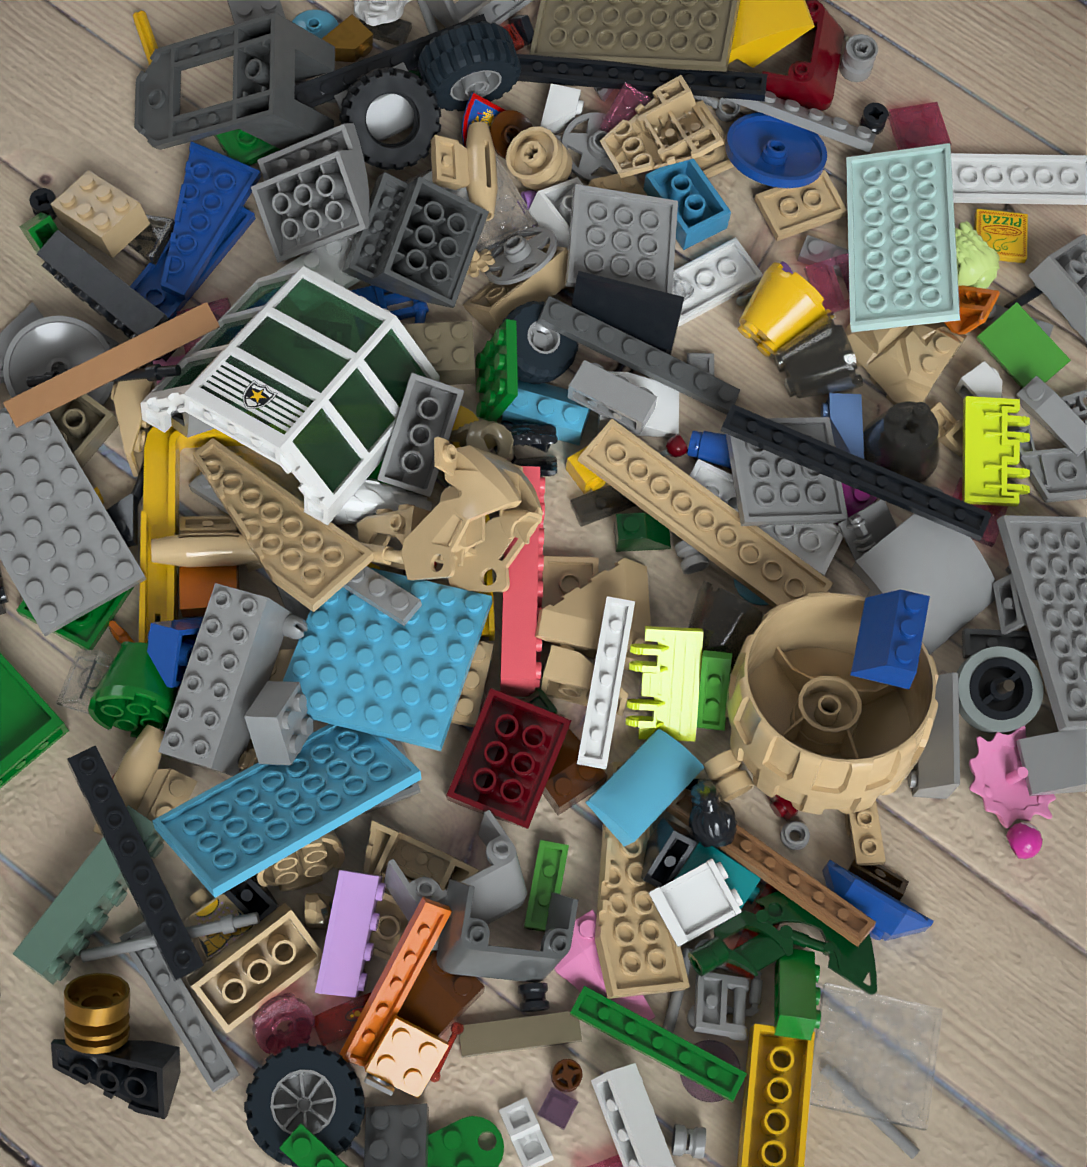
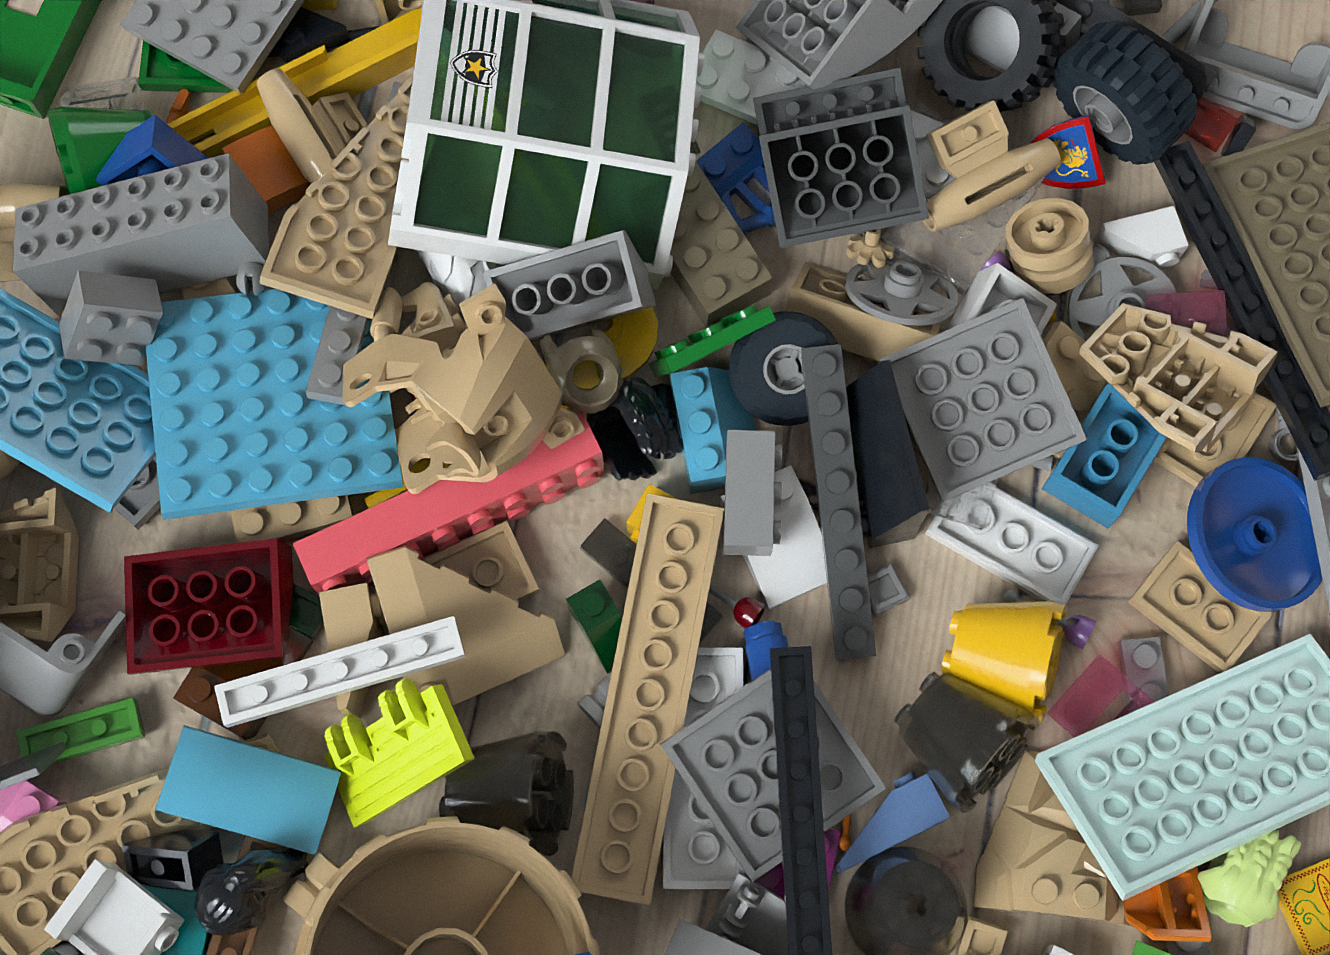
camera: 70 degrees right, 5 degrees up
(504, 123) = (1087, 182): reddish brown dish -> none
(713, 690) = (427, 800): bright green plate -> none

